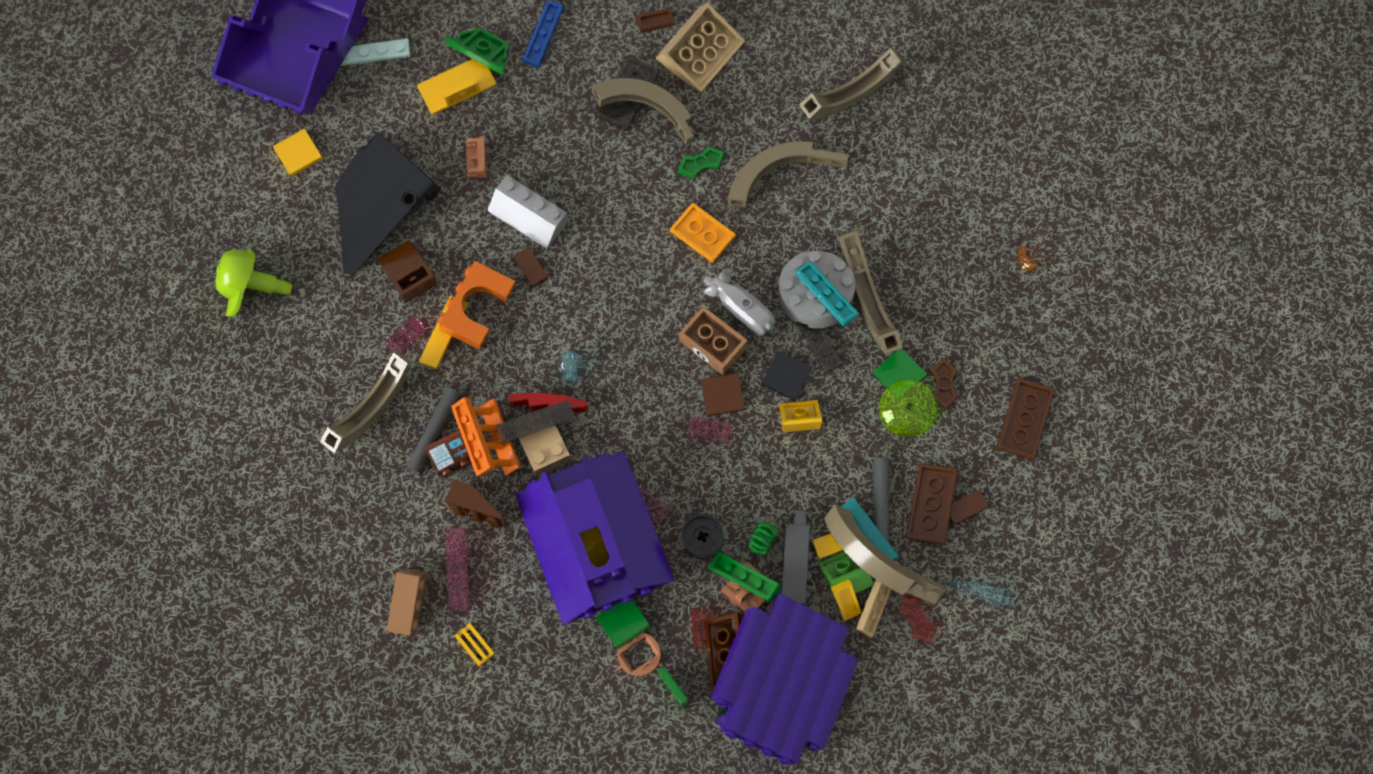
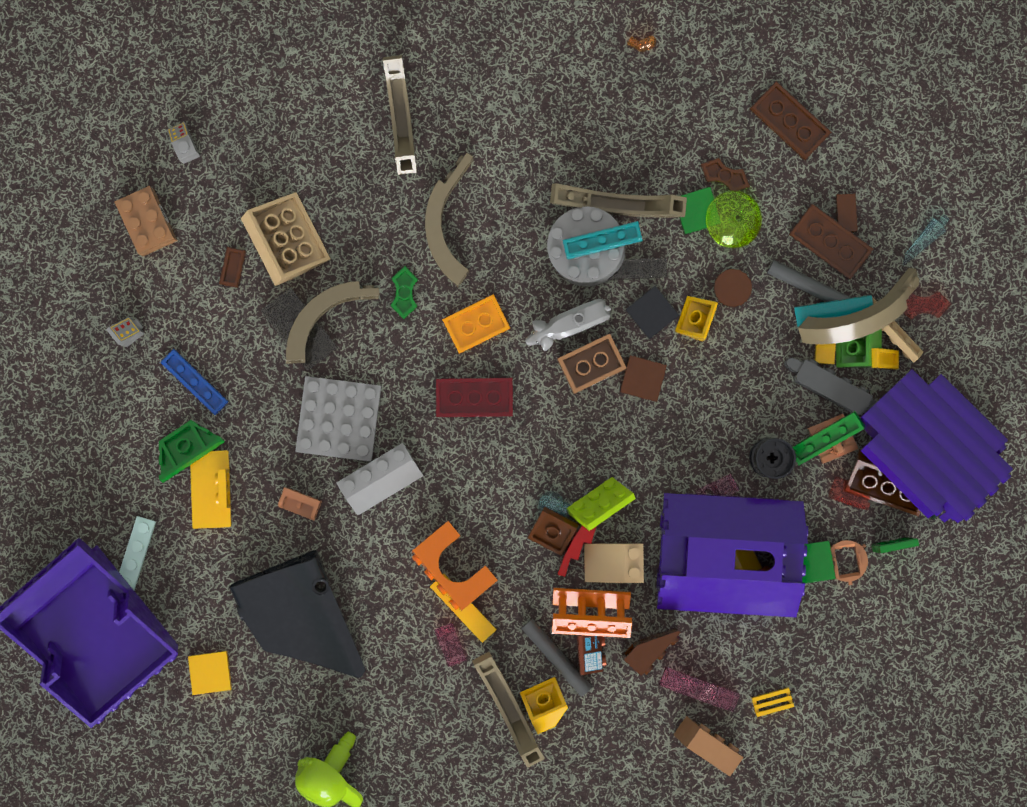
camera: 70 degrees left, 15 degrees up
(383, 436) = (544, 704): none -> yellow slope
(407, 271) = (385, 617): reddish brown slope -> none
(530, 267) = (435, 499): reddish brown tile -> none
(535, 421) = (597, 562): clear smoke plate -> none
(546, 374) = (553, 531): none -> reddish brown tile
(565, 158) = (338, 418): none -> light grey plate
(589, 401) = (600, 503): none -> lime plate
(636, 258) = (474, 397): none -> dark red plate
(711, 431) = (672, 406): clear pink slope -> none
(763, 538) = (797, 405): green gear -> none
(844, 436) = (732, 288): none -> reddish brown tile

